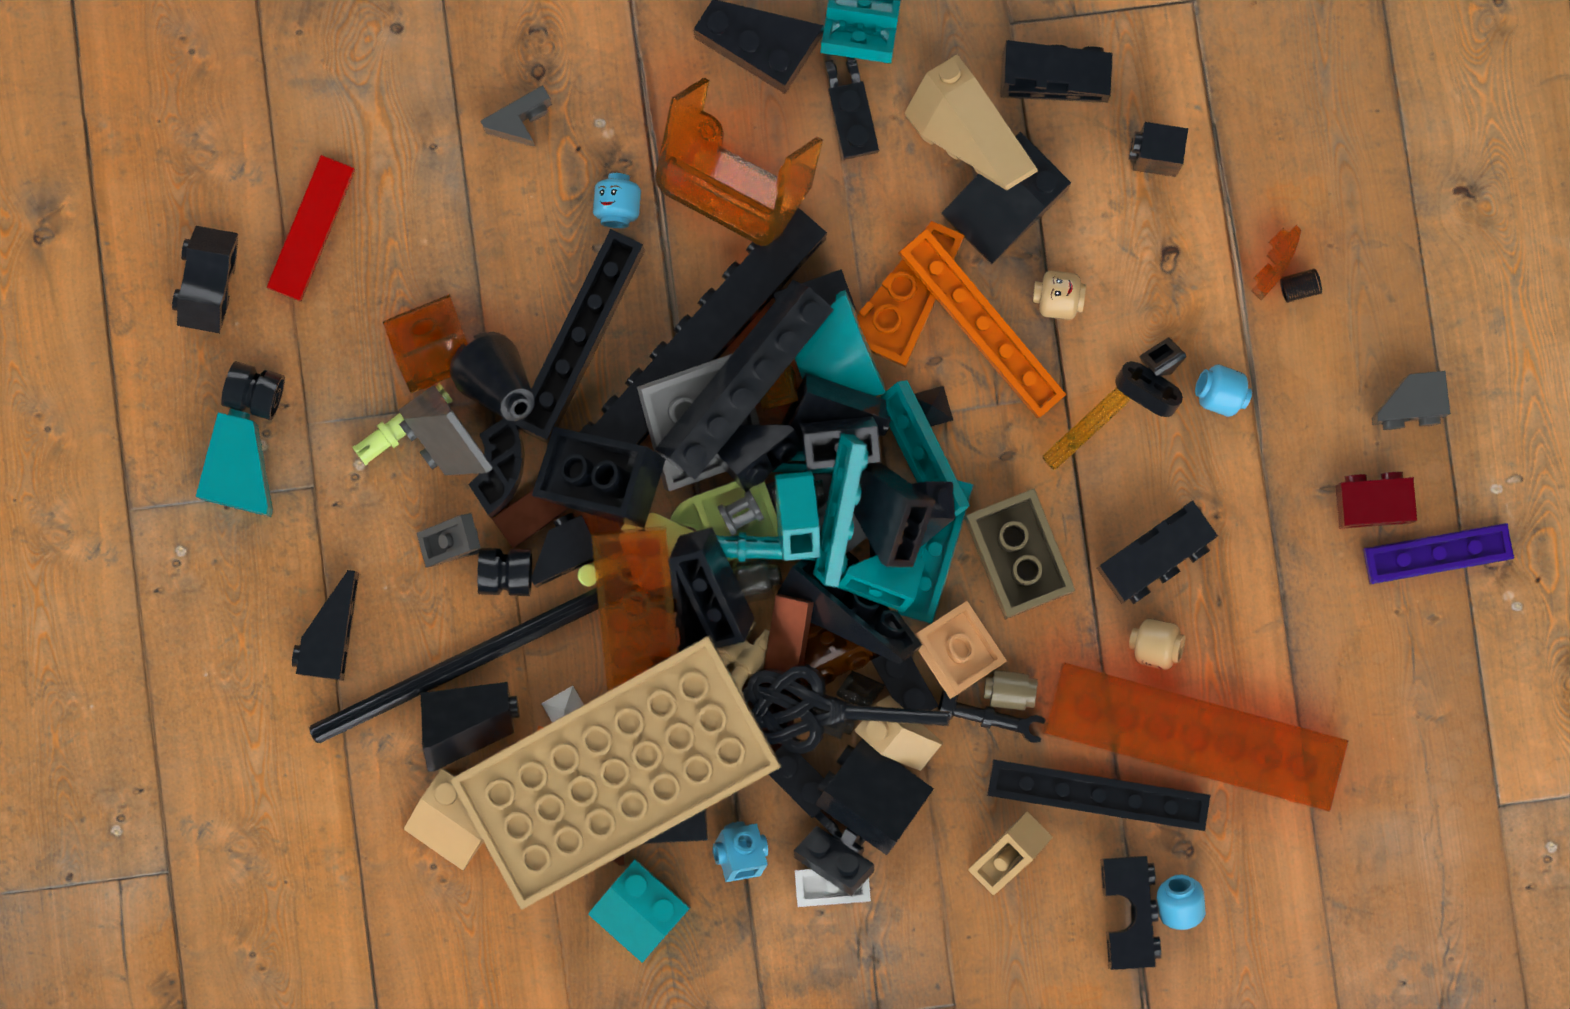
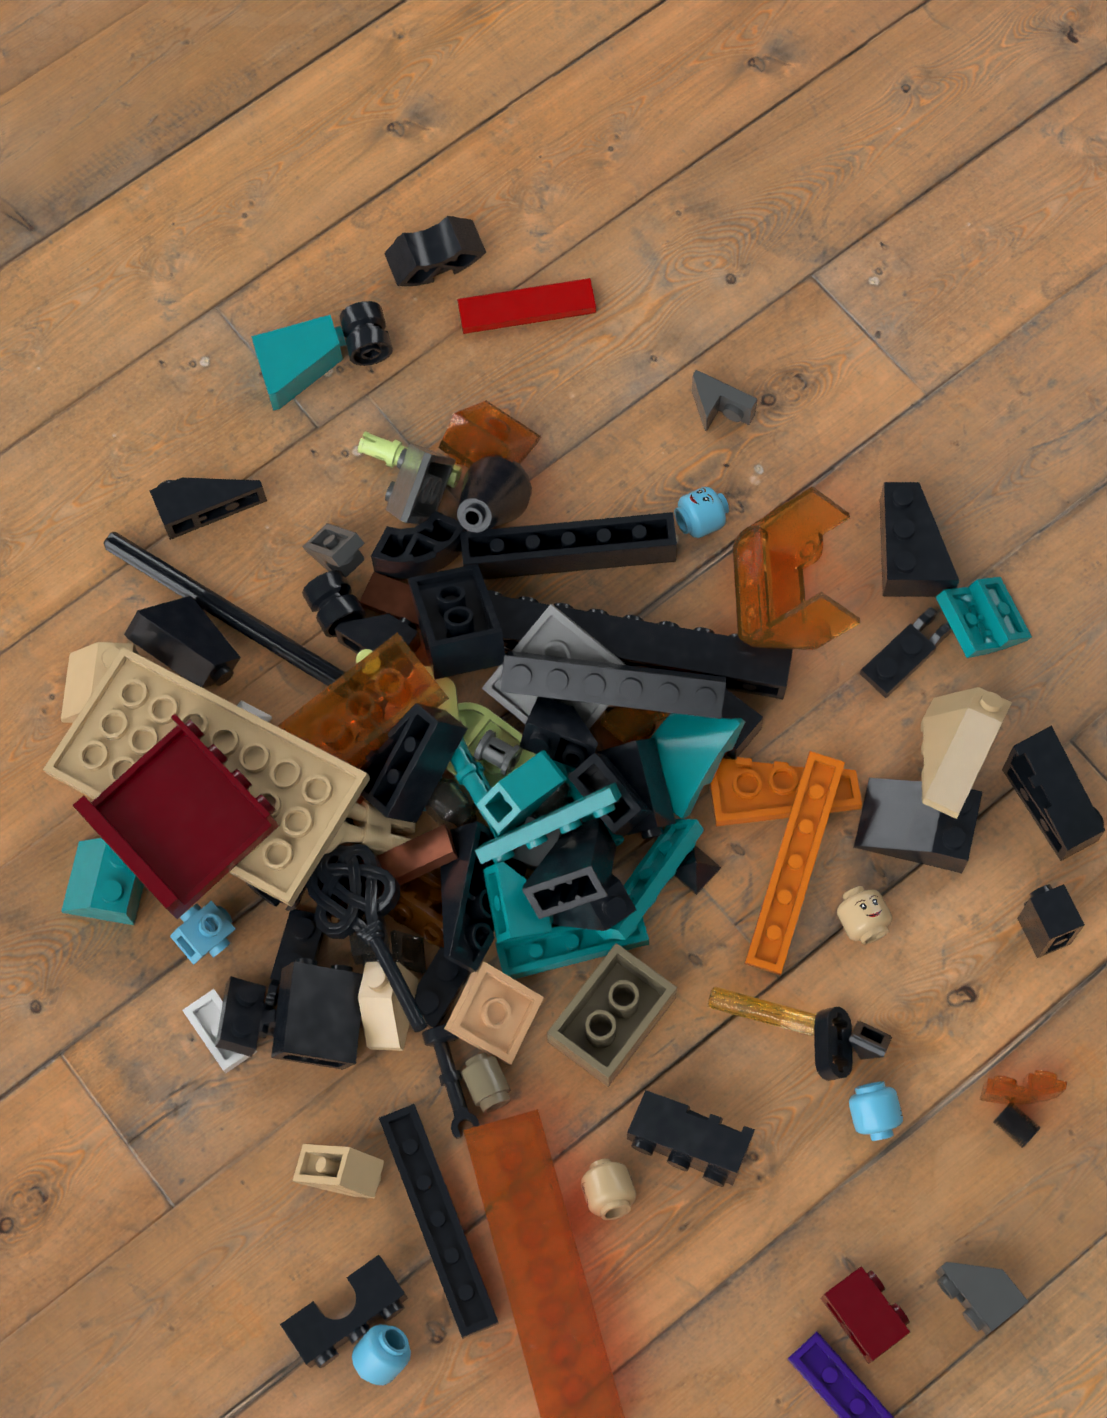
camera: 60 degrees right, 15 degrees down
(646, 816) = (180, 817): none -> dark red panel

